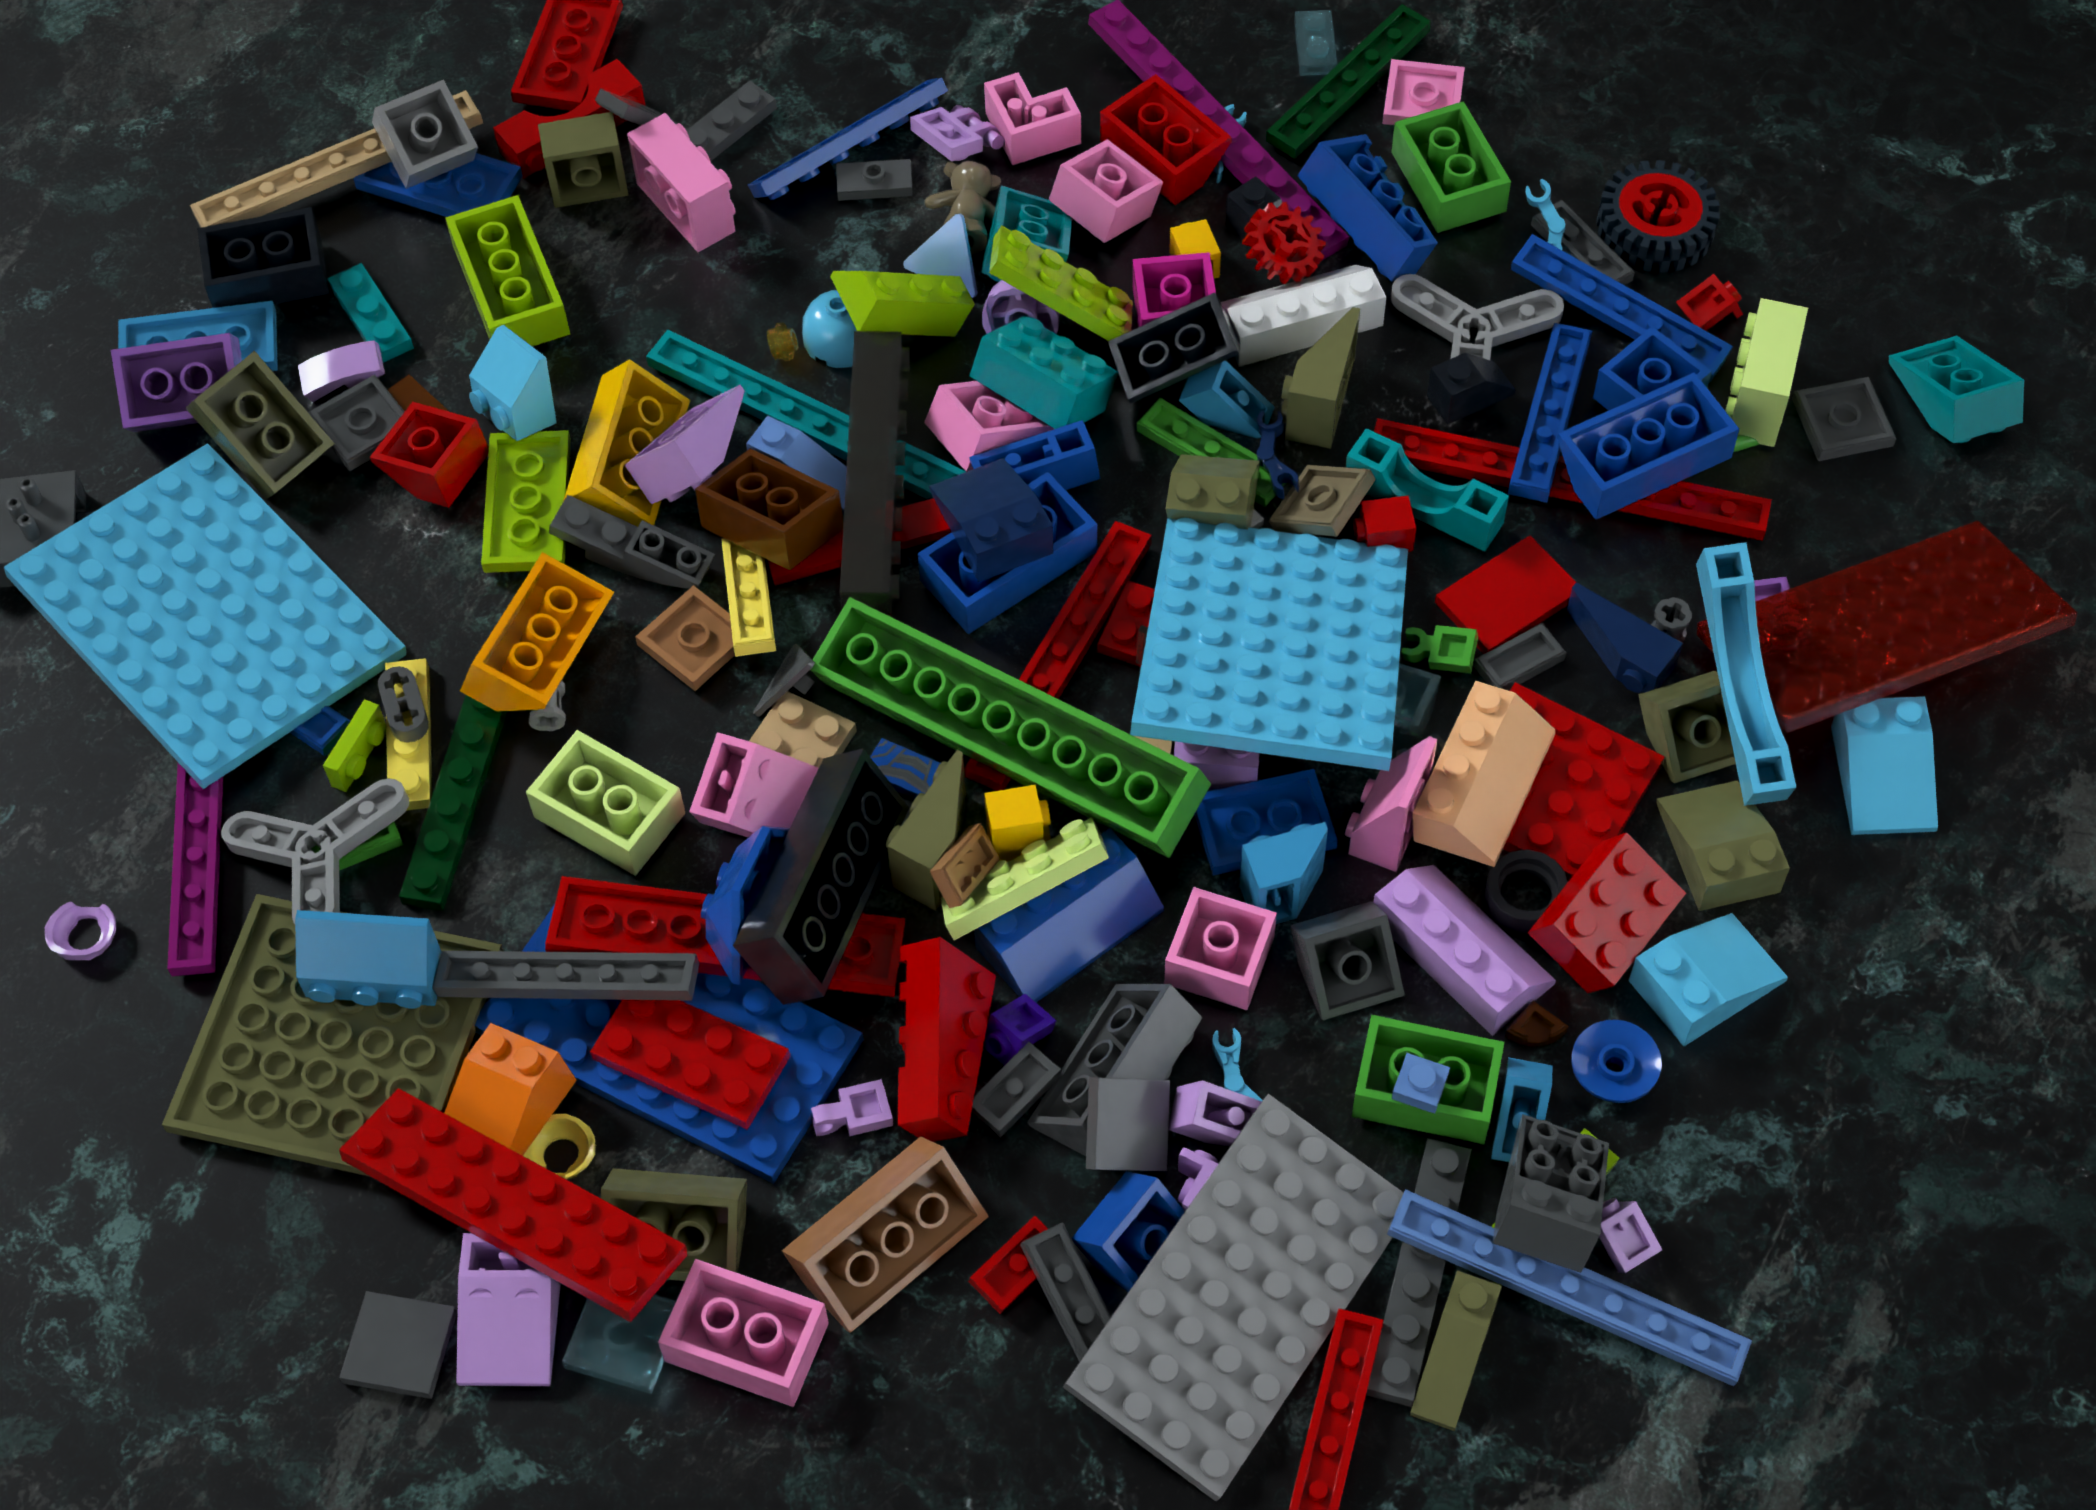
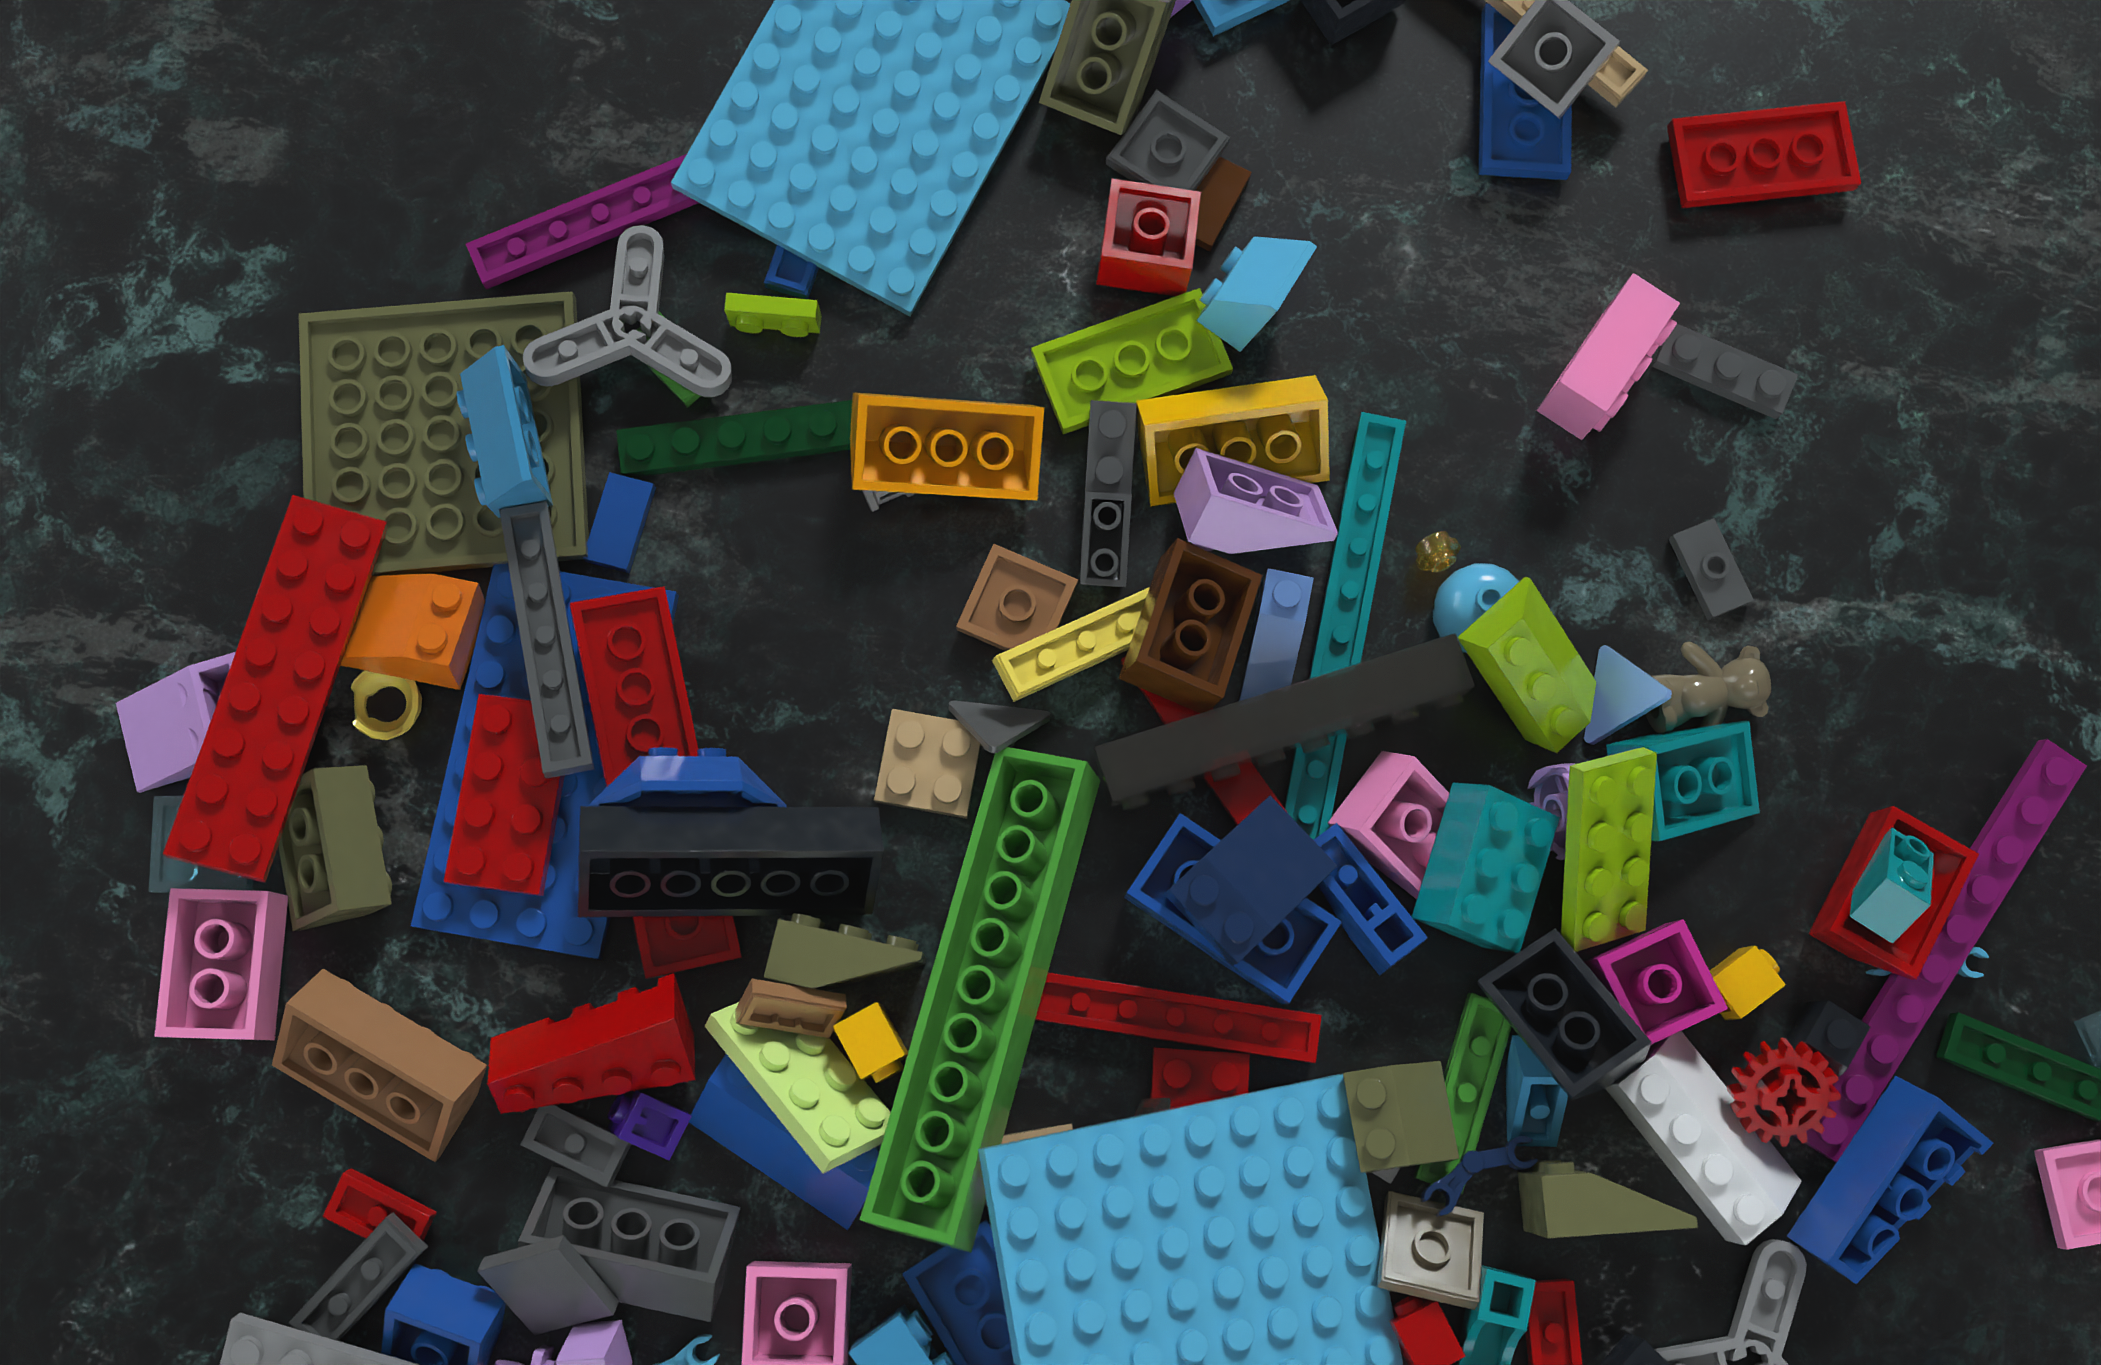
camera: 65 degrees right, 20 degrees up
(66, 918) = (475, 129): lavender piece -> none
(340, 367) = (1233, 98): lavender slope -> none
(370, 311) = (1321, 98): teal plate -> none
(398, 1345) = (143, 631): dark grey tile -> none
(410, 702) = (833, 349): dark grey beam -> none
(412, 761) = (813, 359): light yellow plate -> none
(482, 917) = (619, 522): none -> blue tile
(508, 271) = (1411, 220): lime brick -> none
(520, 138) = (1616, 177): red arch -> none
(583, 159) = (1599, 236): olive brick -> none
(606, 802) = (775, 594): yellowish green brick -> none
(626, 108) = (1681, 271): dark grey tile -> none
(750, 787) = (833, 745): bright pink slope -> none
(836, 146) = (1767, 526): blue plate -> none
(860, 1108) = (511, 989): lavender plate -> none
(905, 769) = (926, 894): tile -> none
(956, 133) = (1799, 635): lavender plate -> none
(1031, 124) = (1851, 725): bright pink brick -> none
(1105, 190) = (1783, 849): bright pink brick -> none
(1158, 120) = (1894, 886): none -> teal slope
(1450, 167) = (1989, 1263): bright green brick -> none

